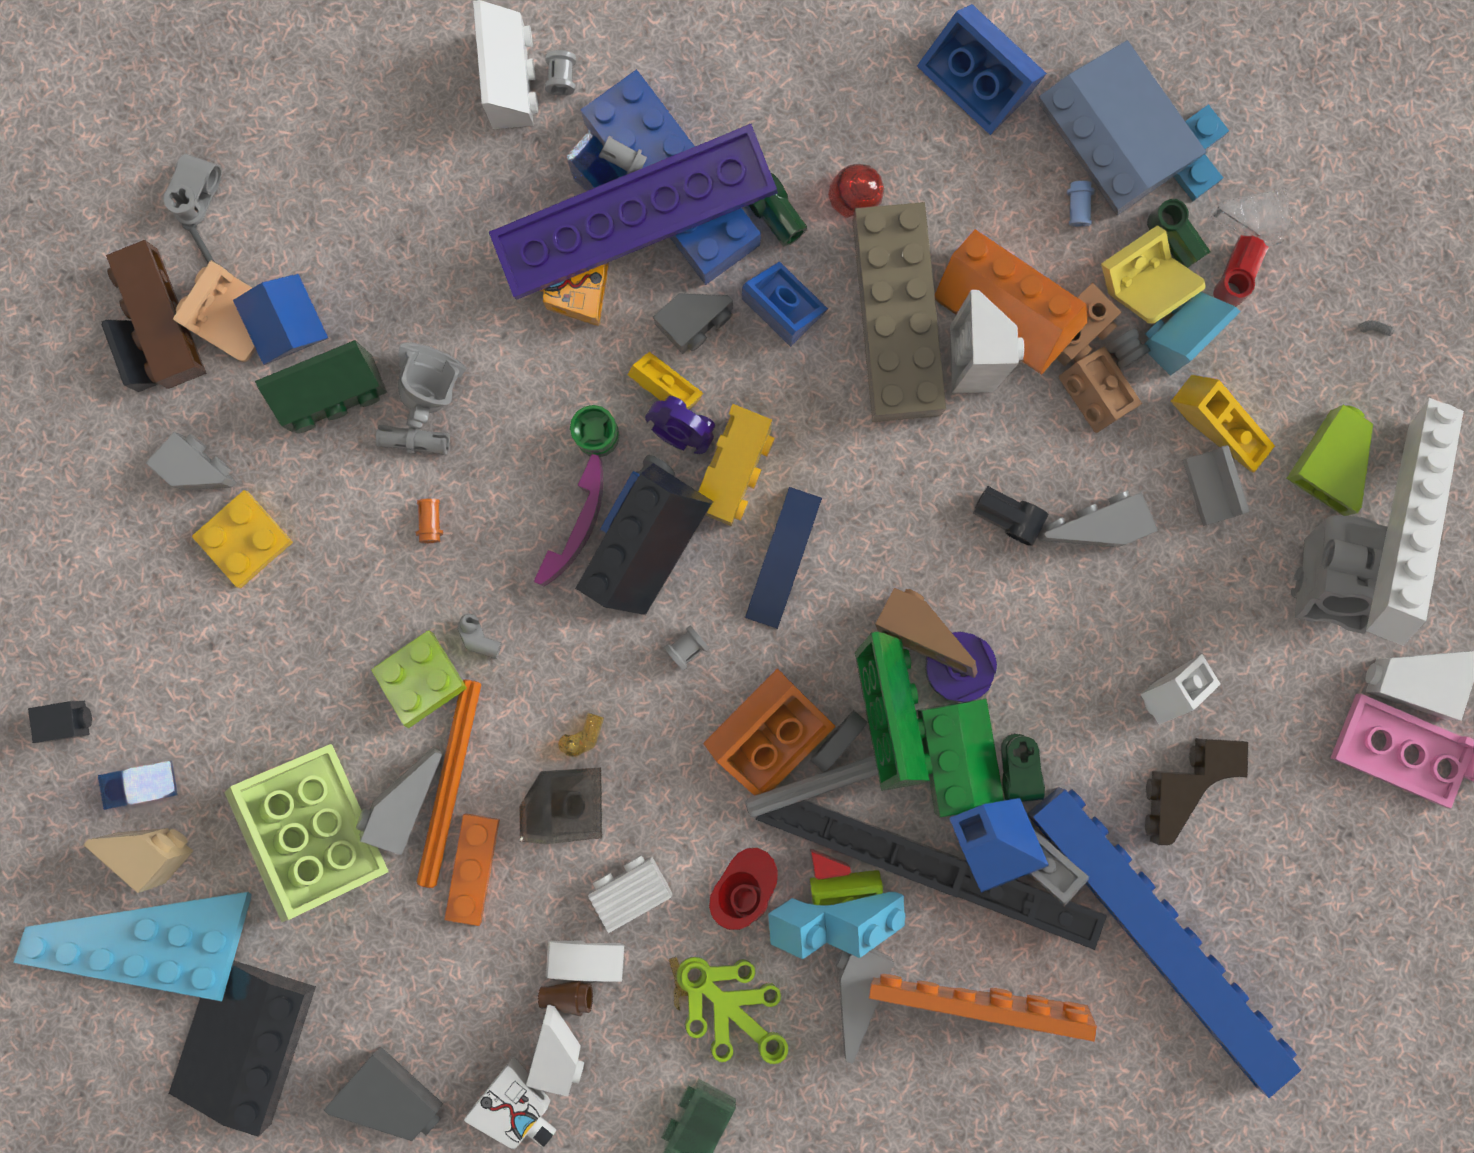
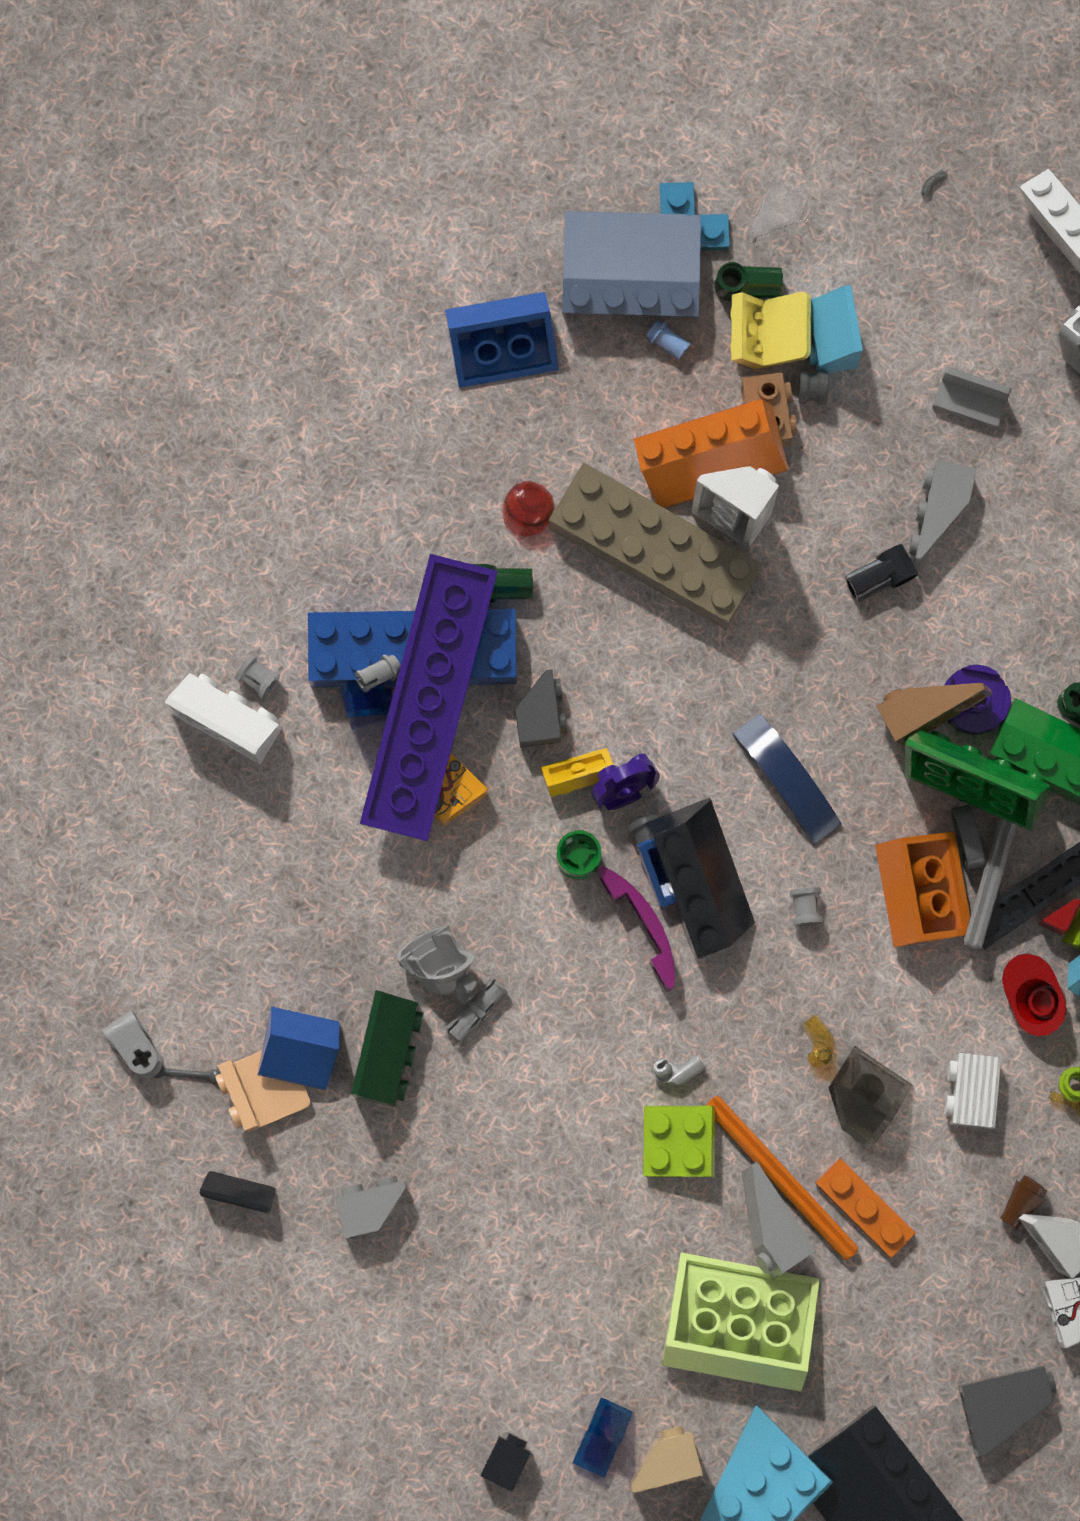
camera: 55 degrees left, 5 degrees down
(151, 307) = (219, 1148): reddish brown brick -> none
(242, 539) = (458, 1209): yellow plate -> none
(429, 521) = (553, 1043): orange pin -> none
(585, 961) = (1003, 1166): white slope -> none
(735, 463) = (685, 761): yellow wedge -> none
(783, 302) = (579, 631): blue slope -> none
(1099, 389) = (830, 432): medium nougat bracket -> none
(1223, 420) = (924, 354): yellow slope -> none
(1241, 270) = (813, 253): red piece -> none
(1337, 460) = (1017, 290): lime slope -> none

